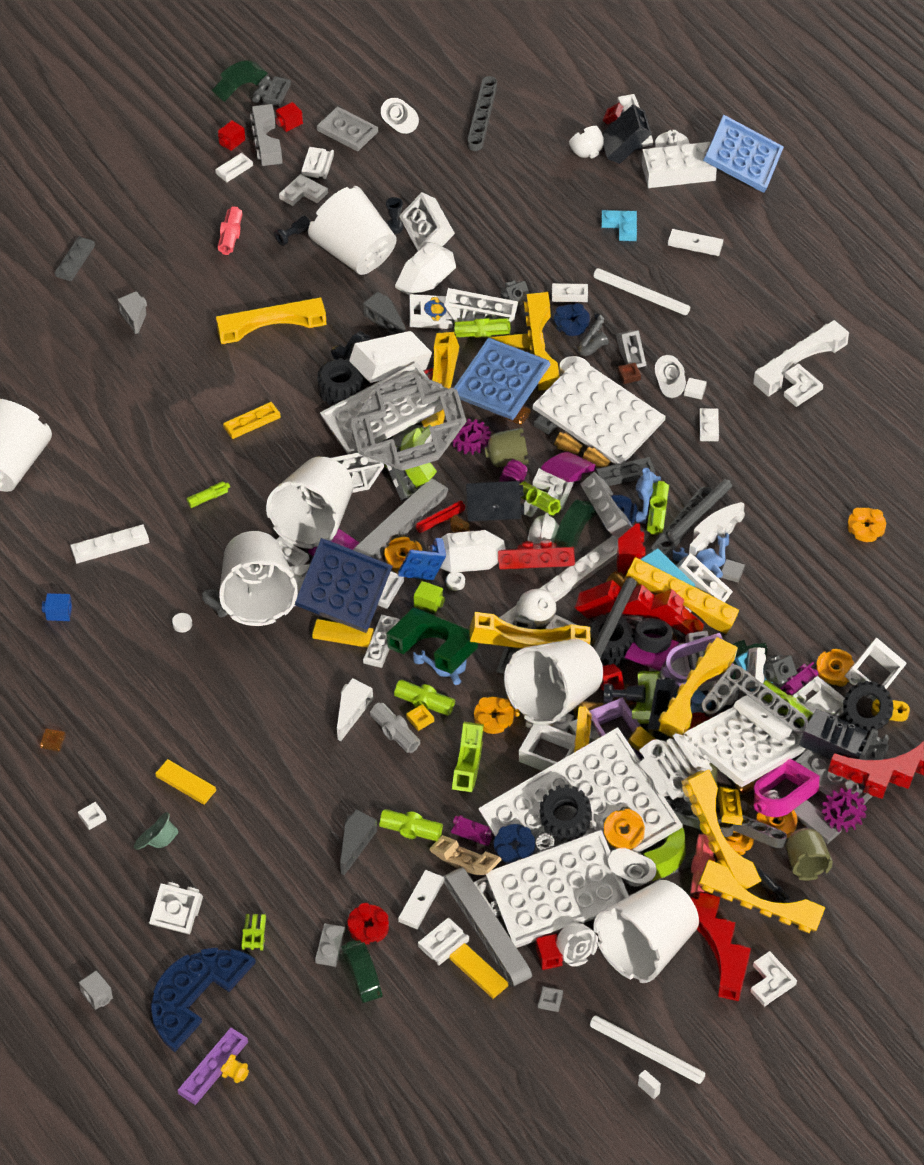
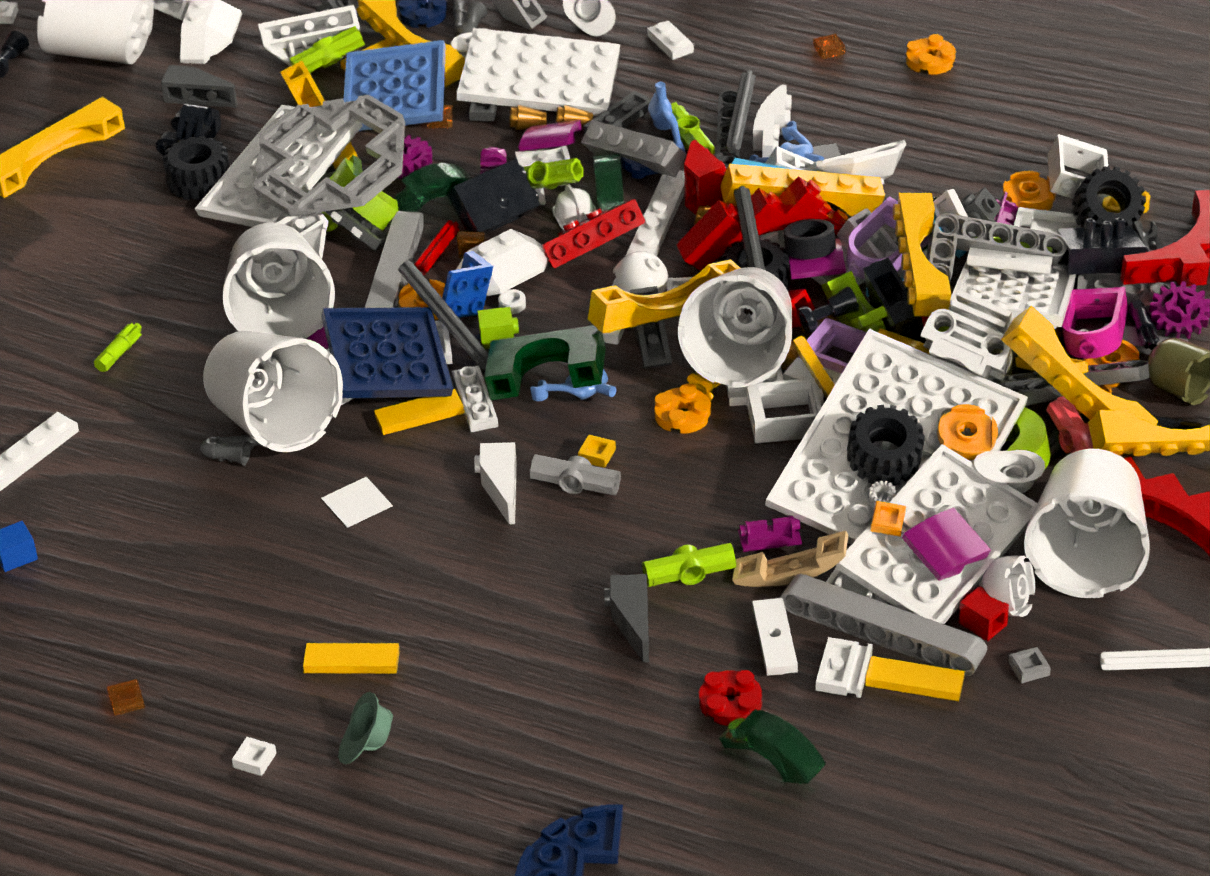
camera: 30 degrees left, 10 degrees down
(176, 908) = (465, 800): white plate -> none
(182, 622) = (197, 491): white tile -> none
(251, 420) = (110, 253): yellow tile -> none
(254, 934) = (593, 776): lime arm -> none
(265, 677) = (356, 502): none -> white sticker
(330, 945) = (702, 744): light grey plate -> none
(388, 355) = (238, 114): white brick -> none
(397, 571) = (444, 313): none -> dark grey axle
(424, 695) = (581, 425): lime piece -> none
(432, 312) = (251, 62): white container -> none
(467, 468) = (429, 183): none -> clear green arch
(469, 757) = (698, 466): lime arch -> none
(507, 446) = (463, 142): olive cylinder -> none
(507, 835) = (843, 500): dark blue plate -> none
(532, 862) = (888, 518): none -> light orange tile
(553, 897) = (946, 544): none -> magenta slope
(629, 373) = (537, 26): copper plate -> none
(695, 388) = (625, 15): white tile -> none
(737, 594) = (870, 162): none -> white wedge
(806, 482) = (829, 46): none -> clear orange tile
(814, 808) = (1144, 327): none -> black piece

